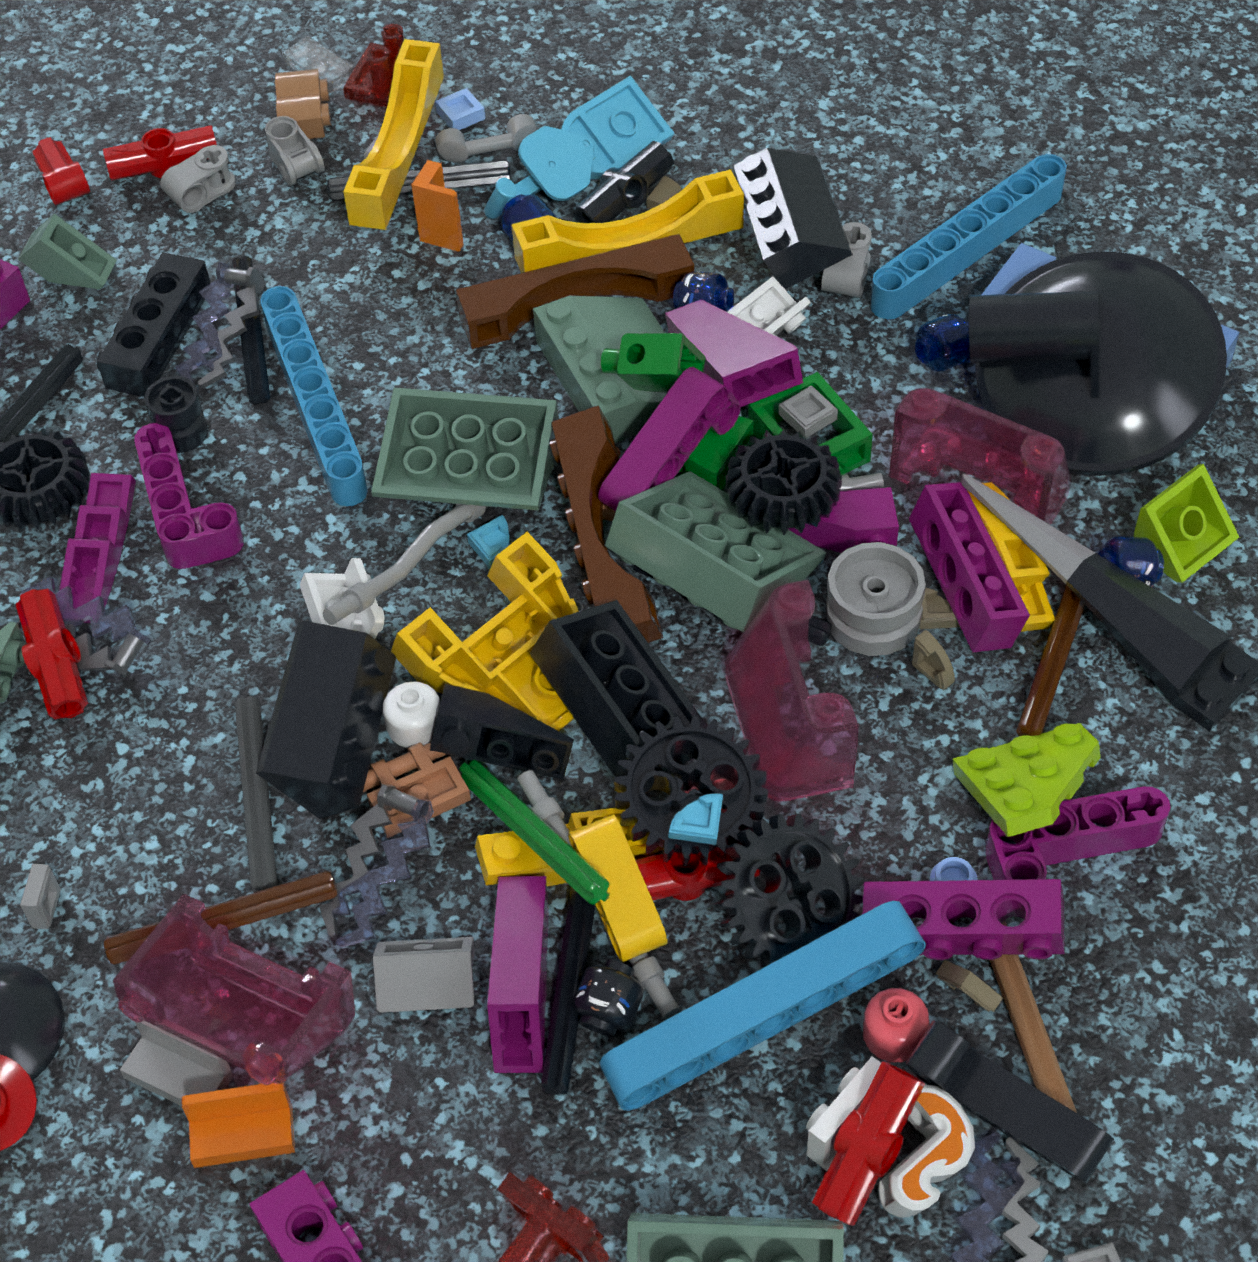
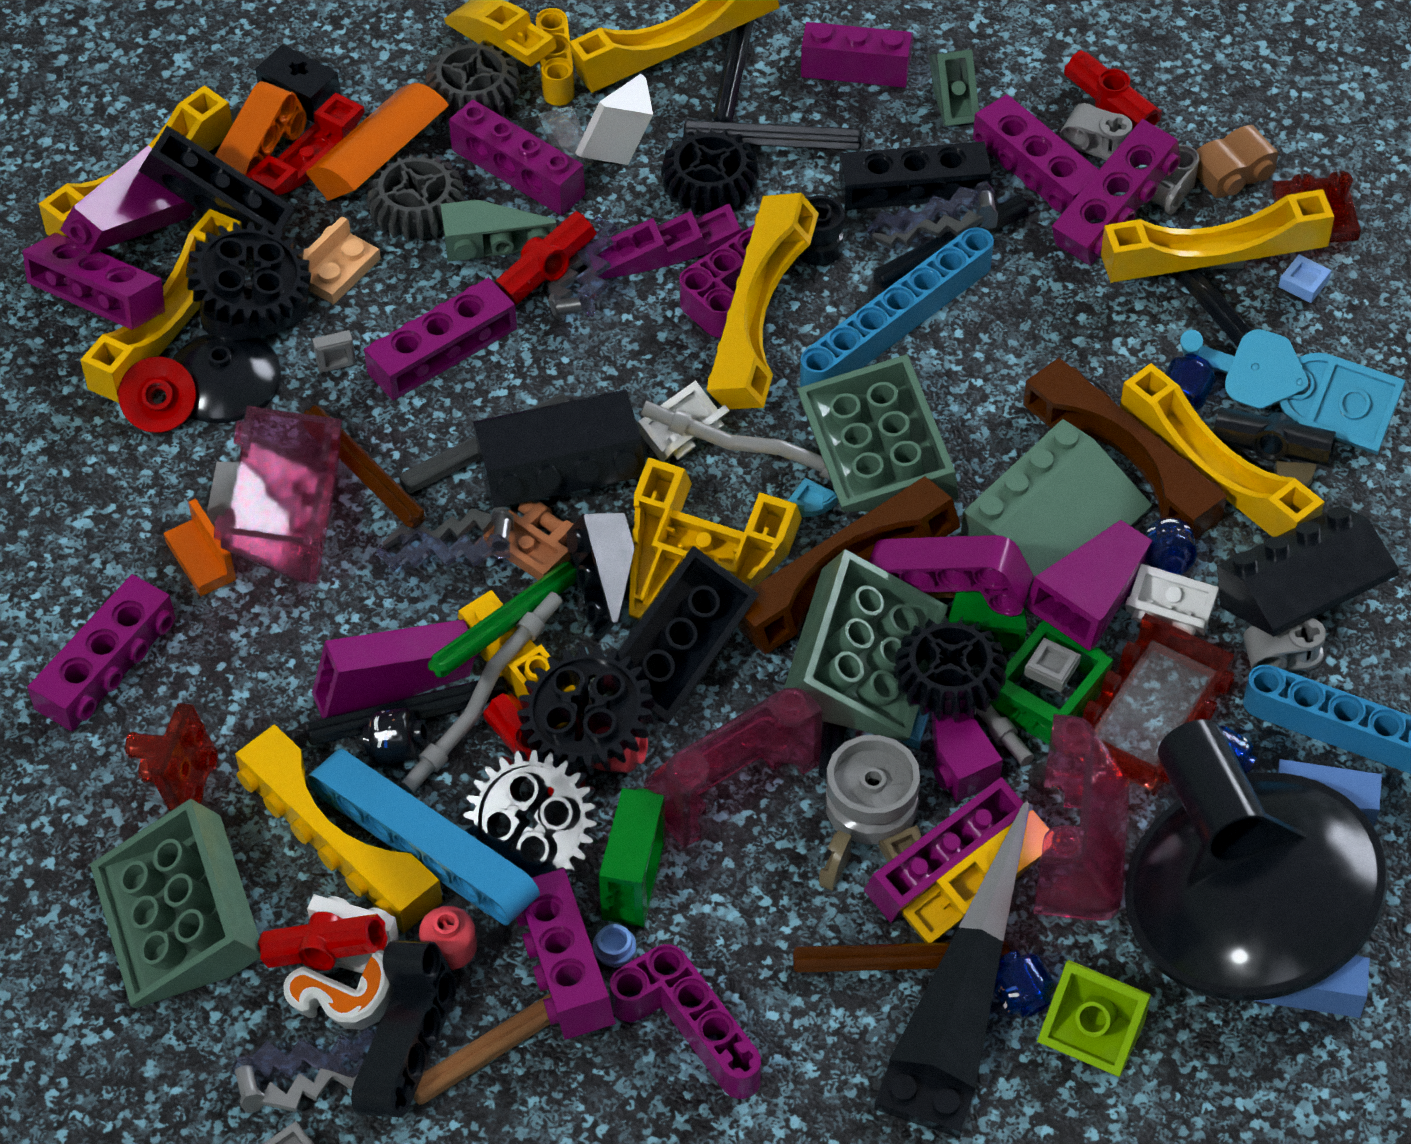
camera: 65 degrees right, 0 degrees up
(60, 175) = (1045, 43): red piece -> none
(108, 844) = (440, 338): none -> magenta brick
(186, 431) = (778, 237): none -> yellow arch
(199, 228) = (1032, 152): none -> magenta brick
(308, 234) = (1142, 146): none -> magenta brick
(311, 54) = (1303, 151): clear plate -> none
(411, 713) = (594, 498): white head -> none
(424, 974) = (370, 604): light grey panel -> none
(436, 209) = (1153, 301): orange panel -> none
(454, 148) = (1303, 335): light grey bar -> none
(609, 1131) = (387, 878): none -> yellow arch
(629, 910) = (476, 695): yellow beam -> none
(652, 360) = (1013, 508): green torso -> none
(698, 820) = (549, 719): medium azure tile -> none
(864, 362) = (1158, 686): none -> window
(876, 815) = (632, 857): none -> green window
(970, 984) = (514, 985): dark tan tile -> none
(1028, 777) = (737, 962): lime plate -> none

